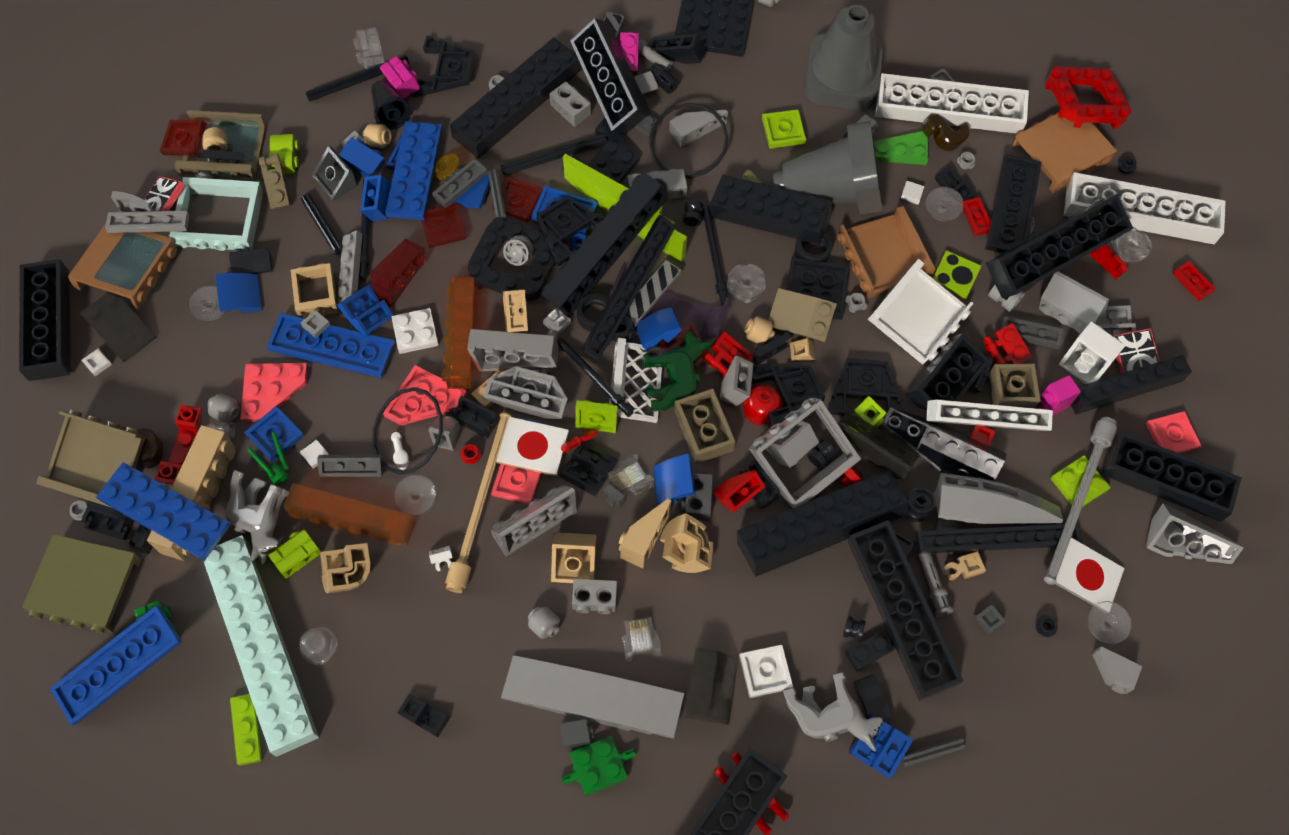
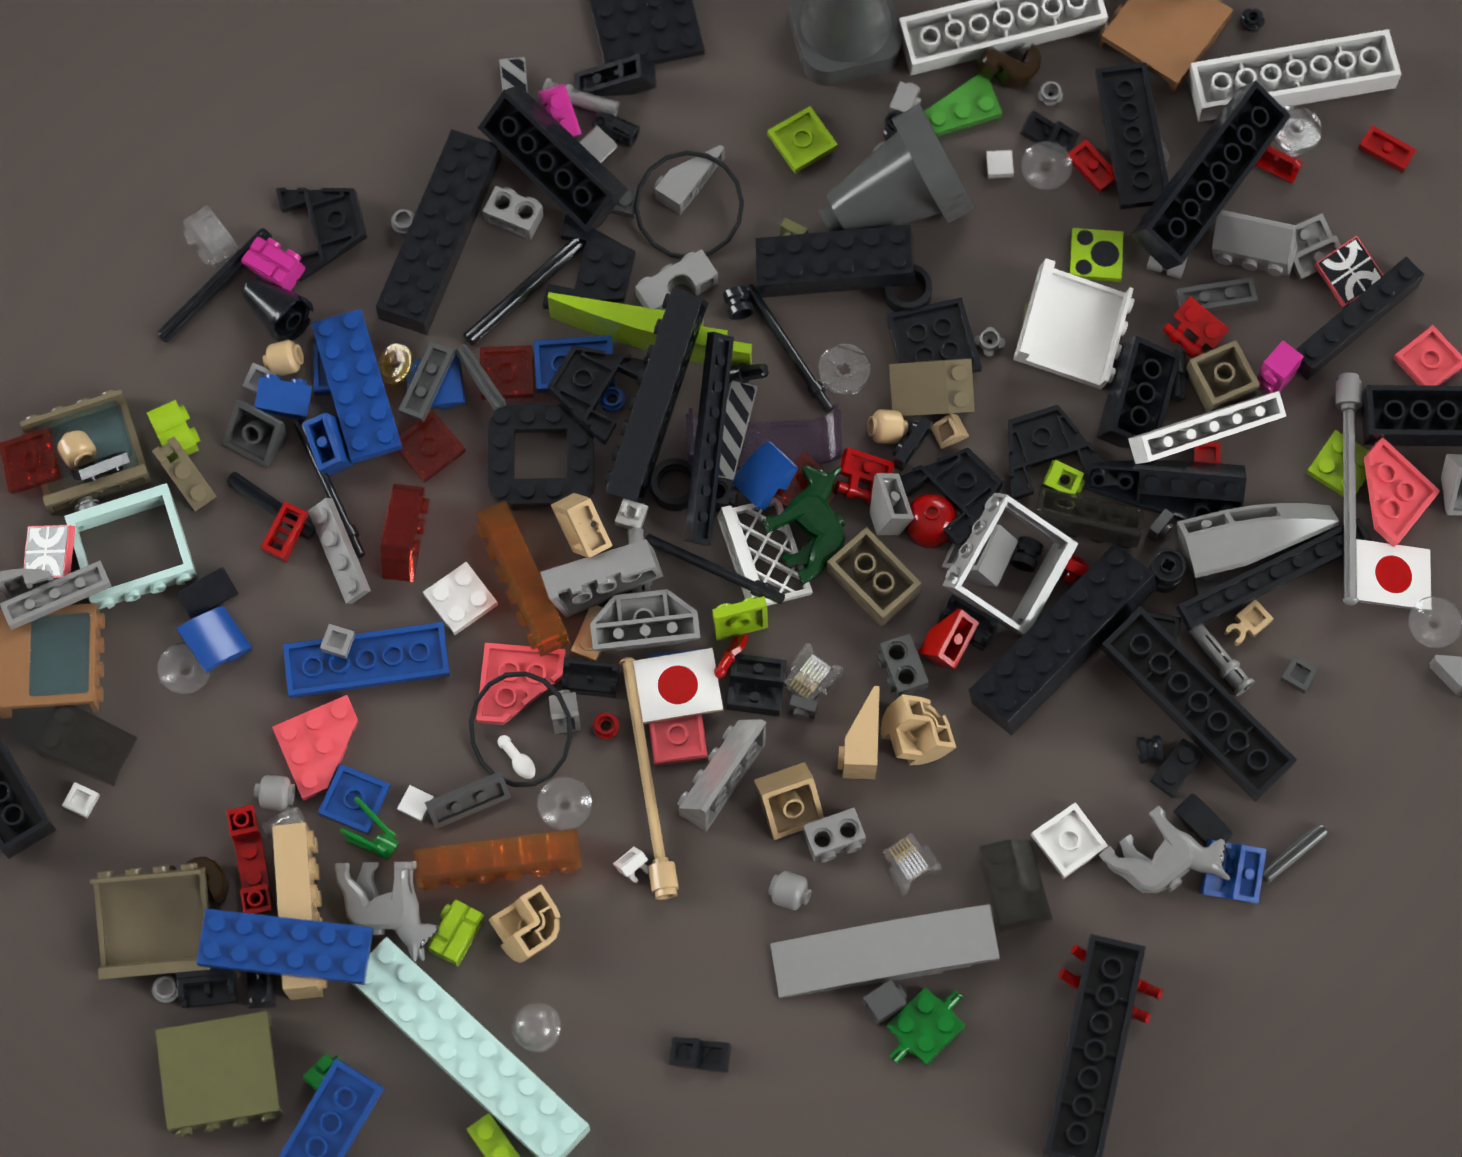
camera: 20 degrees left, 5 degrees up
(319, 251) = (293, 535): none -> red slope
(323, 306) = (320, 621): tan window -> none
(365, 310) = (389, 598): blue slope -> none
(519, 250) = (543, 441): light grey wheel -> none
(674, 479) = (866, 658): blue slope -> none
(675, 257) = (745, 373): none -> black axle
(883, 251) = (996, 260): medium nougat panel -> none
(927, 472) = (1161, 526): none -> dark grey plate
(1051, 622) = (1368, 648): black plate -> none
(1091, 353) = (1299, 300): white brick -> none
(1113, 515) = (1395, 491): none -> coral plate

